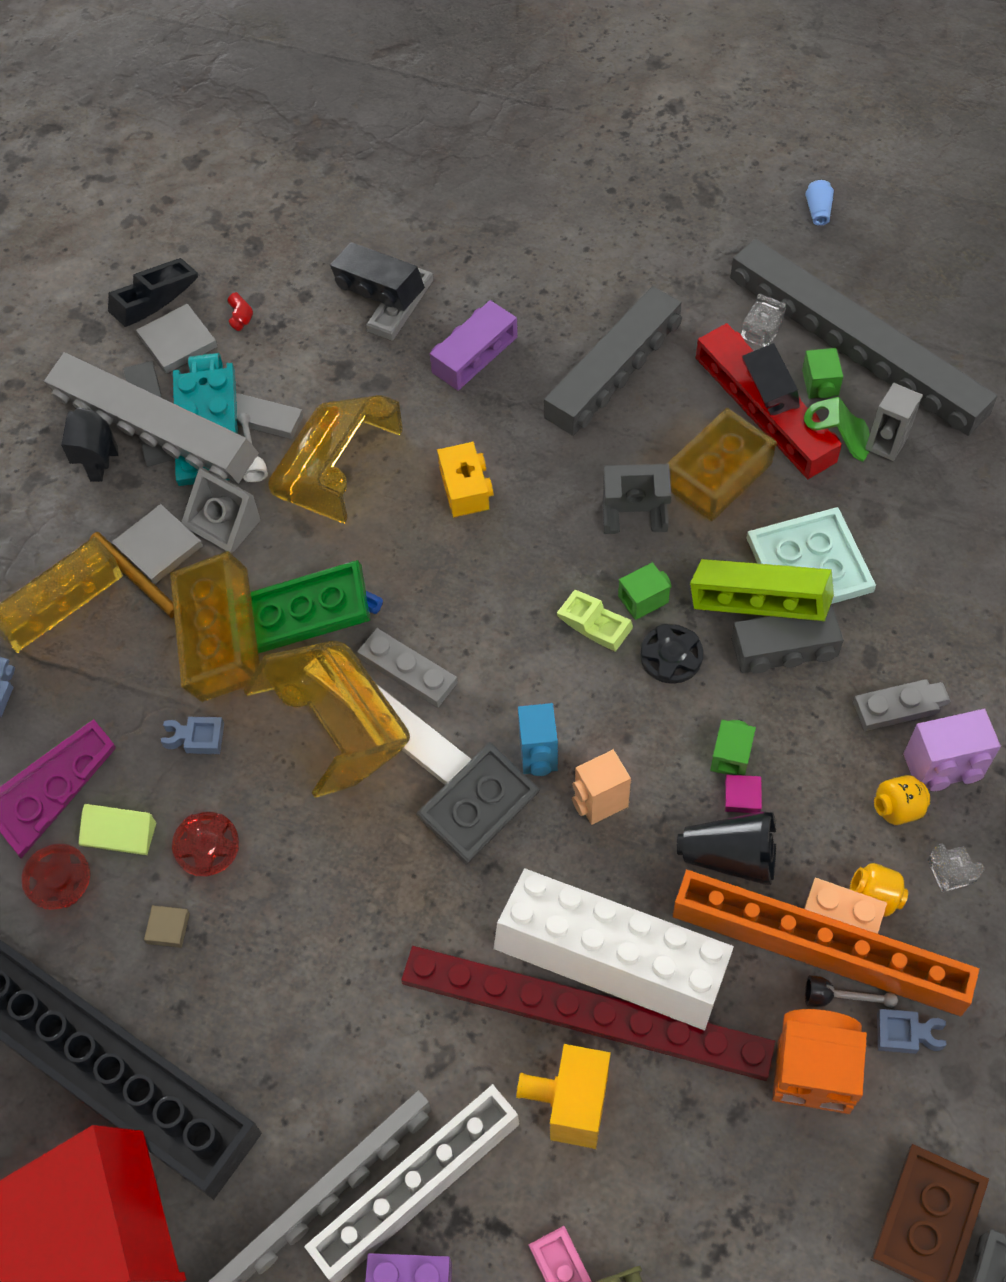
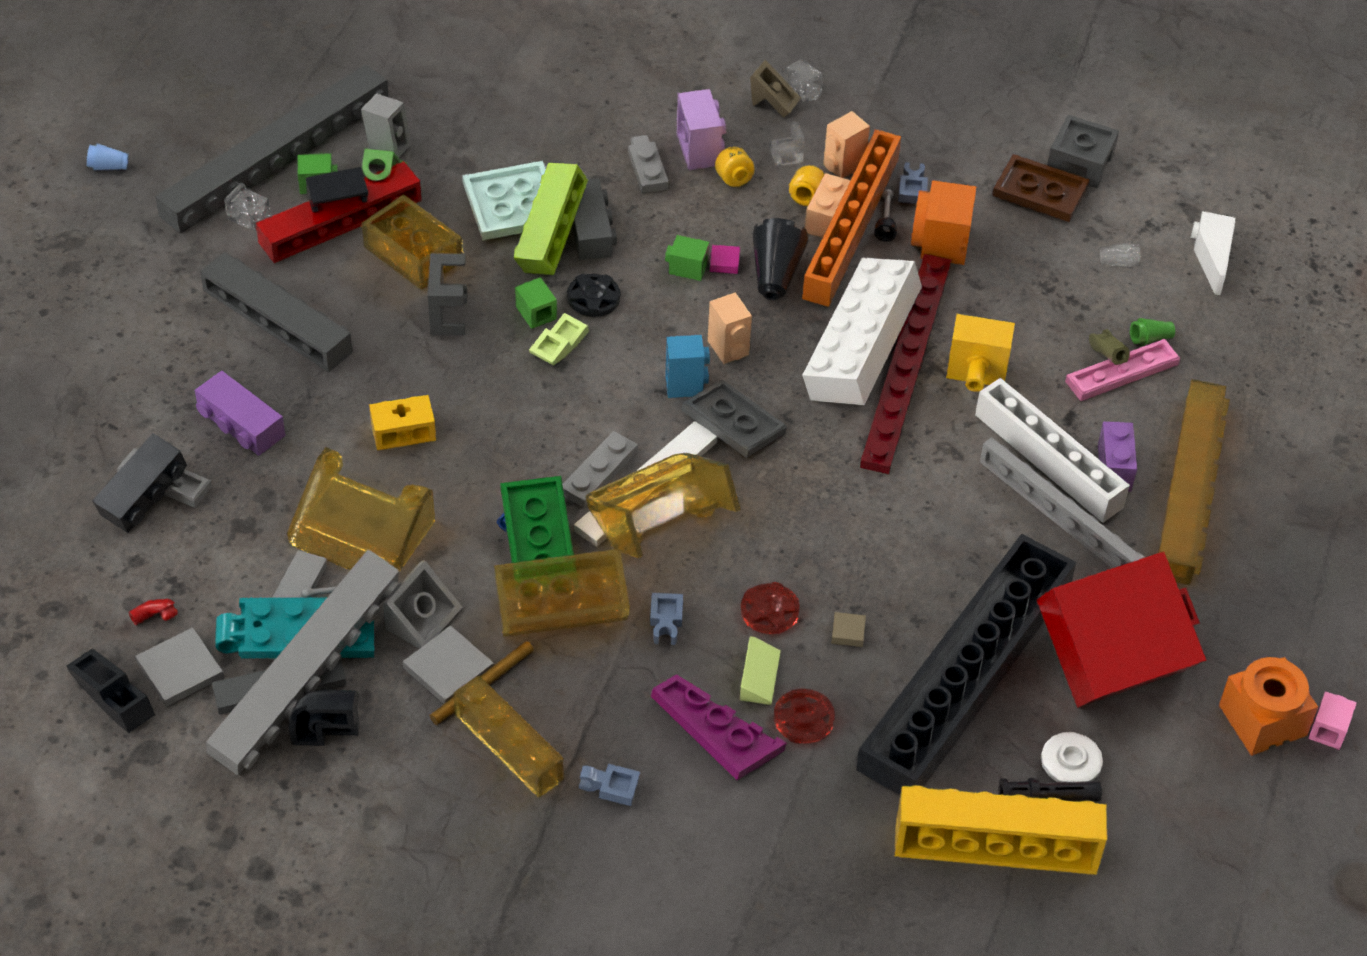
camera: 95 degrees left, 10 degrees down
(952, 929) = (845, 144): none -> light nougat brick

